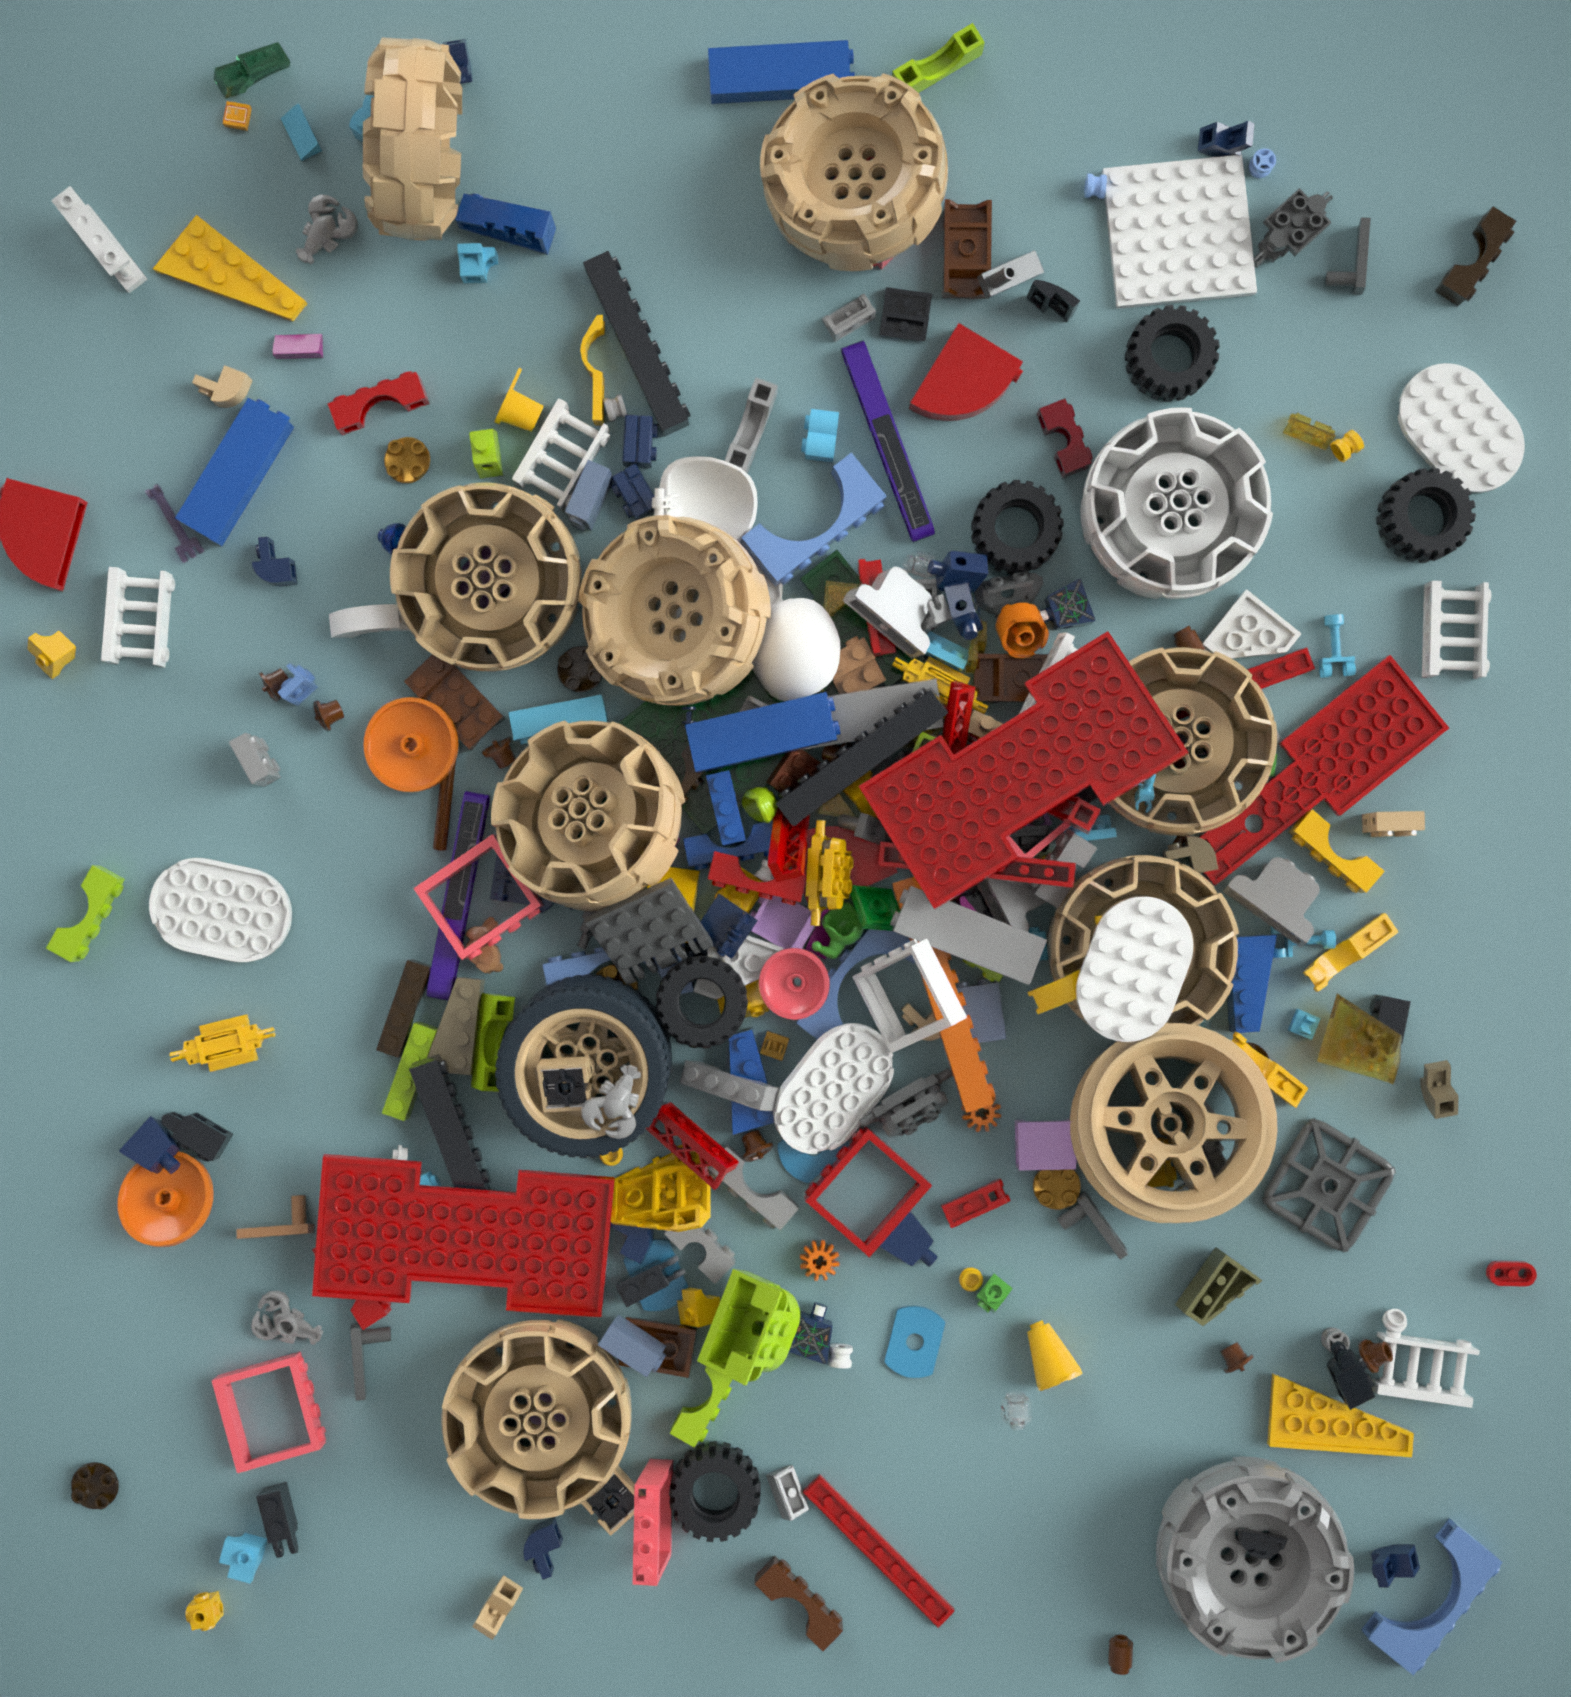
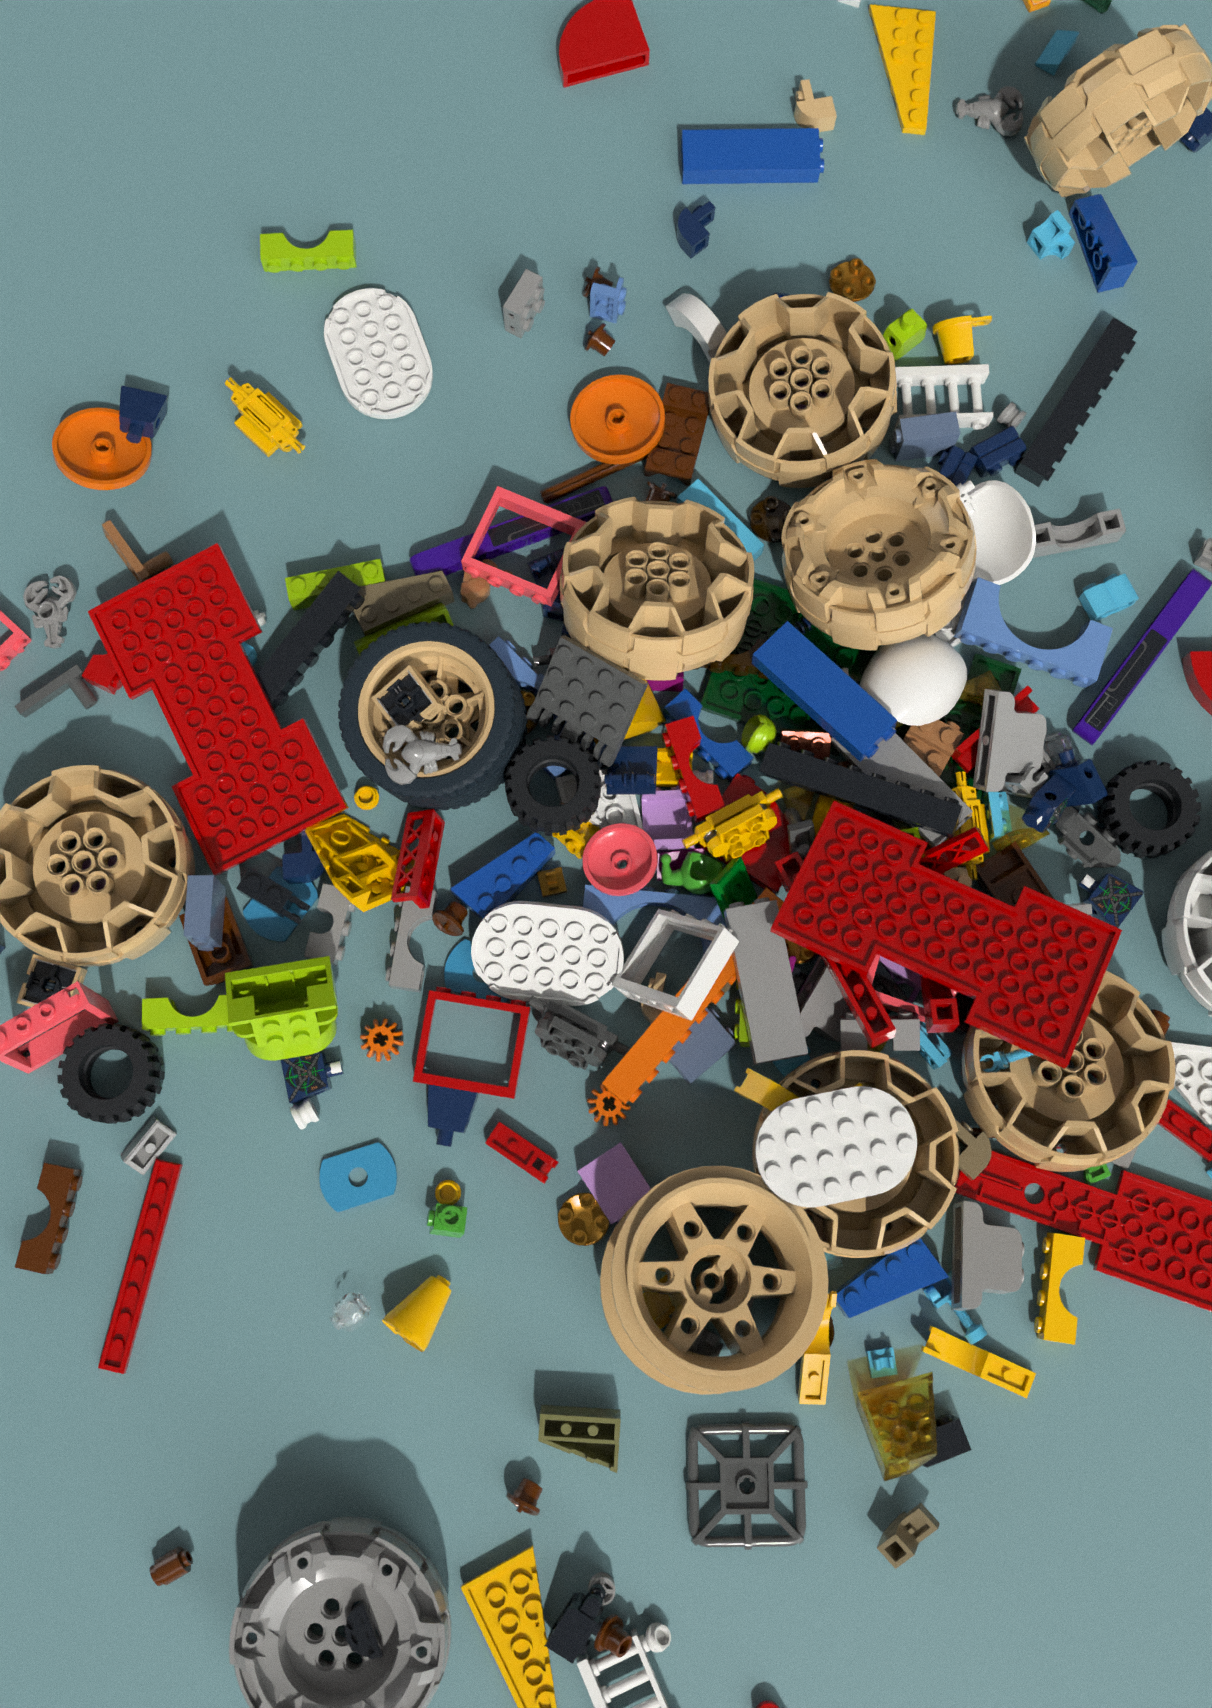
camera: 55 degrees right, 10 degrees down
(51, 652) = (509, 103): yellow brick -> none
(117, 604) = (571, 132): white fence -> none
(186, 545) = (666, 154): clear purple hinge -> none
(198, 1134) = (174, 445): black hinge -> none
(298, 346) = (884, 146): slope -> none
(351, 410) = (862, 215): red arch -> none
(403, 1008) = (390, 543): dark brown arch -> none
(595, 330) = (1058, 362): yellow piece -> none
(697, 1308) = (271, 951): yellow brick -> none
(726, 808) = (736, 707): blue brick -> none
(729, 1086) = (493, 857): light grey arch -> none
(782, 846) = (738, 774): red fence -> none
(1021, 629) = (1065, 879): orange brick -> none
(1088, 1207) = (581, 1261): dark grey piece -> none
(1401, 823) = (1125, 1323): tan piece -> none

